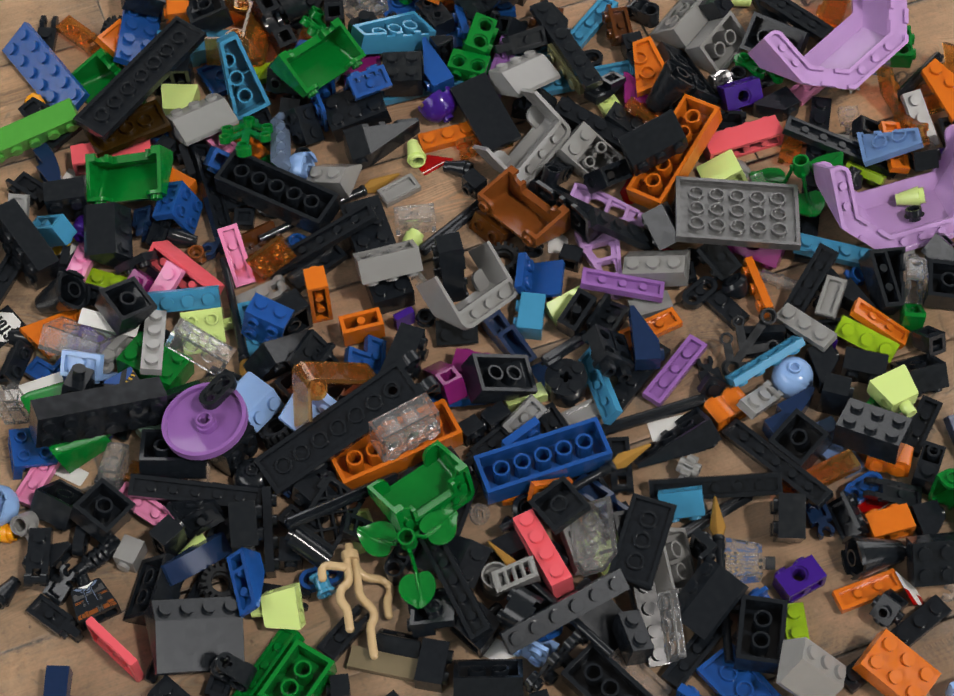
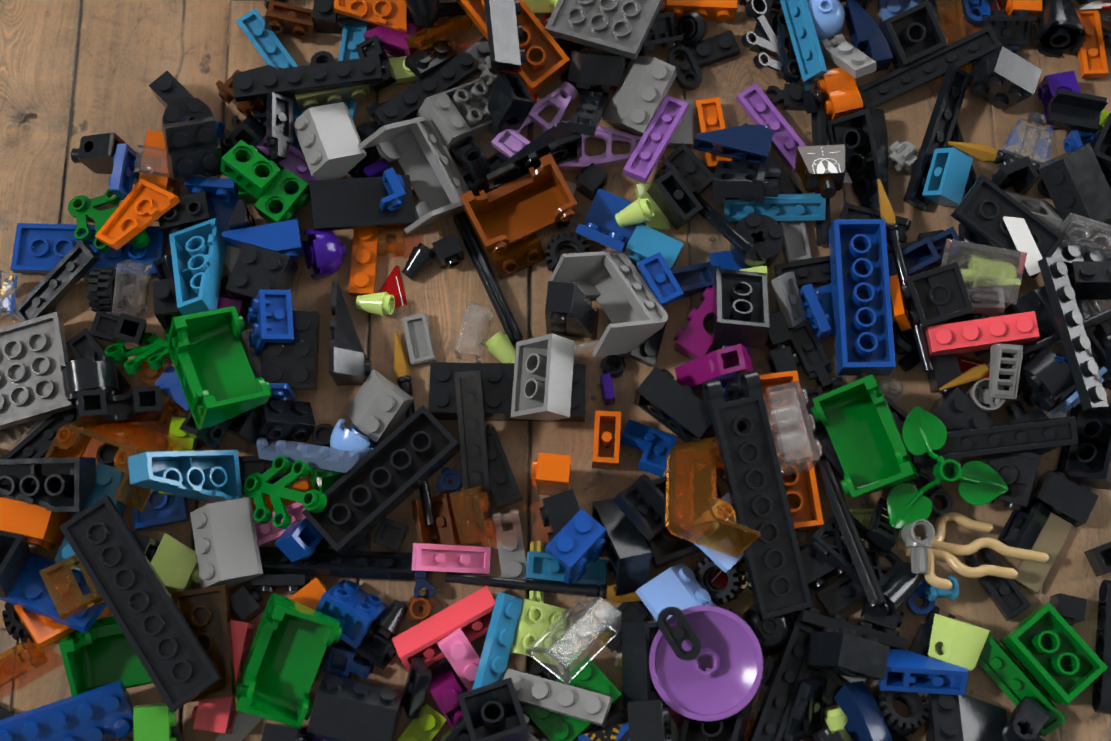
camera: 70 degrees left, 15 degrees up
(136, 36) = (65, 590): none -> clear orange plate
(343, 548) = (918, 547): none -> light grey axle
(501, 319) = (660, 279): none -> blue plate
(503, 125) = (394, 186): none -> blue bracket
(519, 119) = (376, 169): none -> dark purple tile
(552, 288) = (635, 213): none -> yellowish green cone
(631, 554) = (1024, 242): none -> white sticker
(644, 404) = (821, 168): none -> torso
(782, 579) = (1075, 111): none -> black panel

